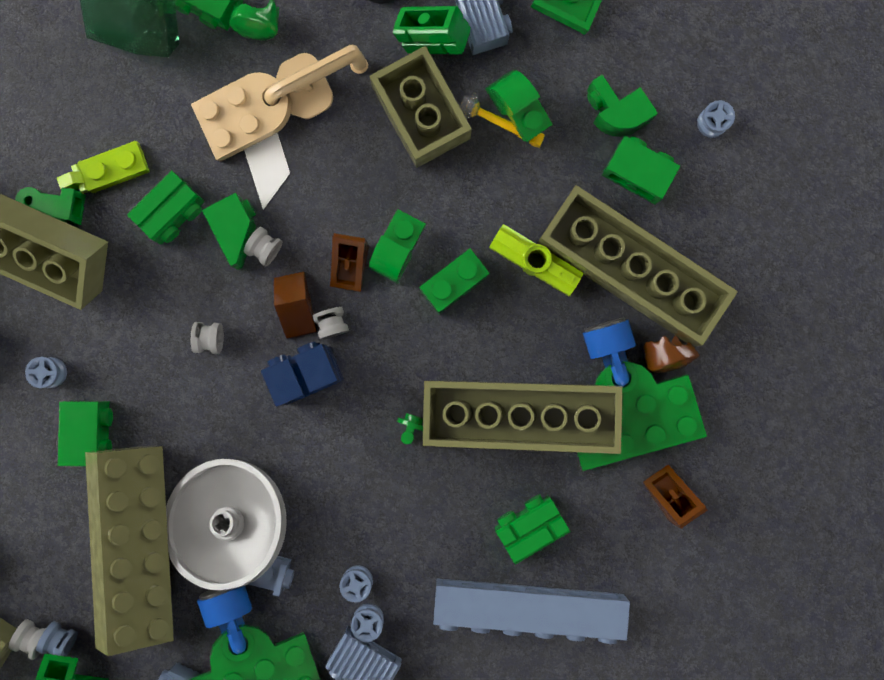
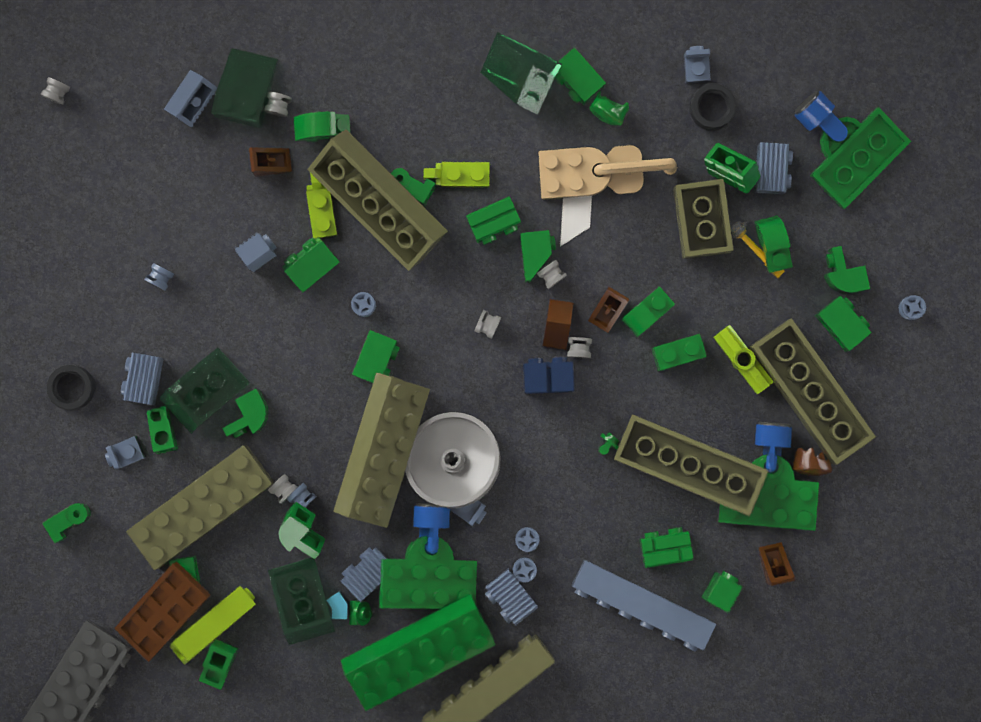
camera: 20 degrees right, 0 degrees up
(621, 558) = (722, 590): none -> green brick

